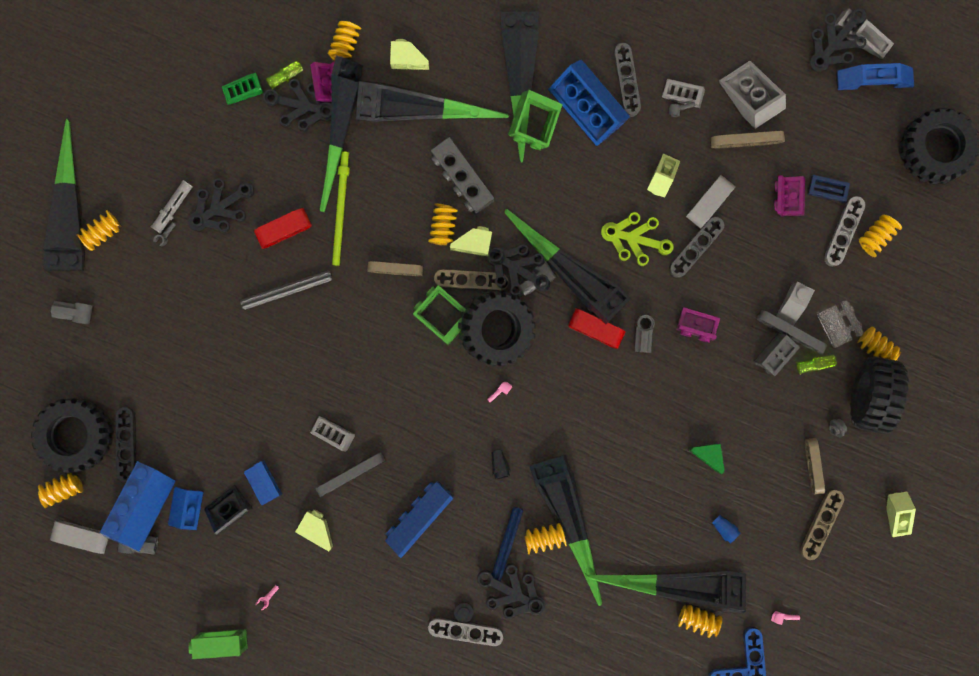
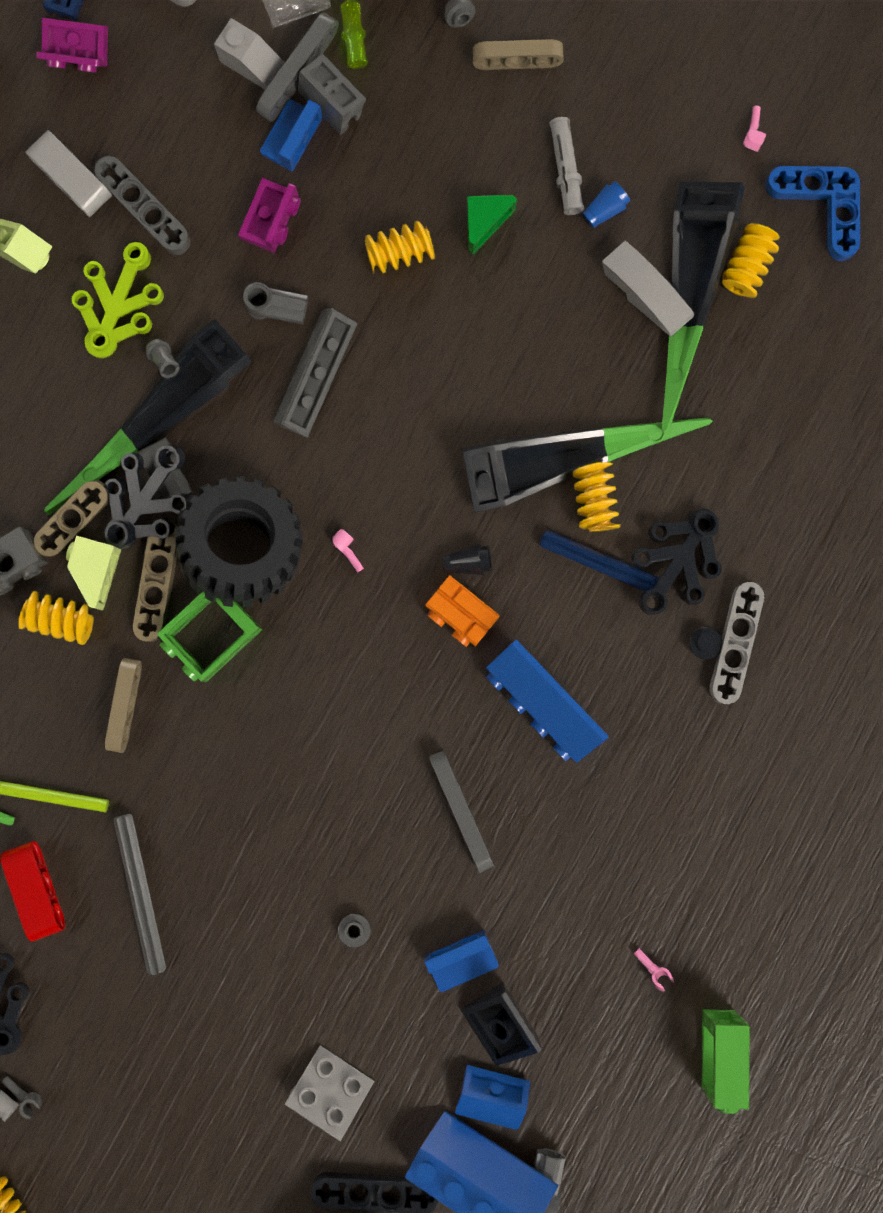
camera: 85 degrees left, 0 degrees up
(181, 412) = (329, 1093): none -> light grey hinge
(281, 415) = (359, 921): none -> dark grey plate
(315, 529) = (547, 878): yellowish green slope -> none
(346, 441) = (405, 813): light grey slope -> none
(468, 463) = (461, 611): none -> orange brick
(489, 222) = (62, 541): none -> dark tan beam
(596, 328) = (259, 380): red beam -> none
(605, 361) = (315, 372): none -> dark grey slope
(607, 267) = (160, 354): none -> dark grey pin
(676, 558) = (647, 288): none -> light grey slope
(686, 405) = (399, 247): none -> yellow piece
(742, 504) = (568, 179): none -> light grey pin
(750, 332) = (292, 133): none -> blue panel
(826, 526) = (615, 49): dark tan beam -> none

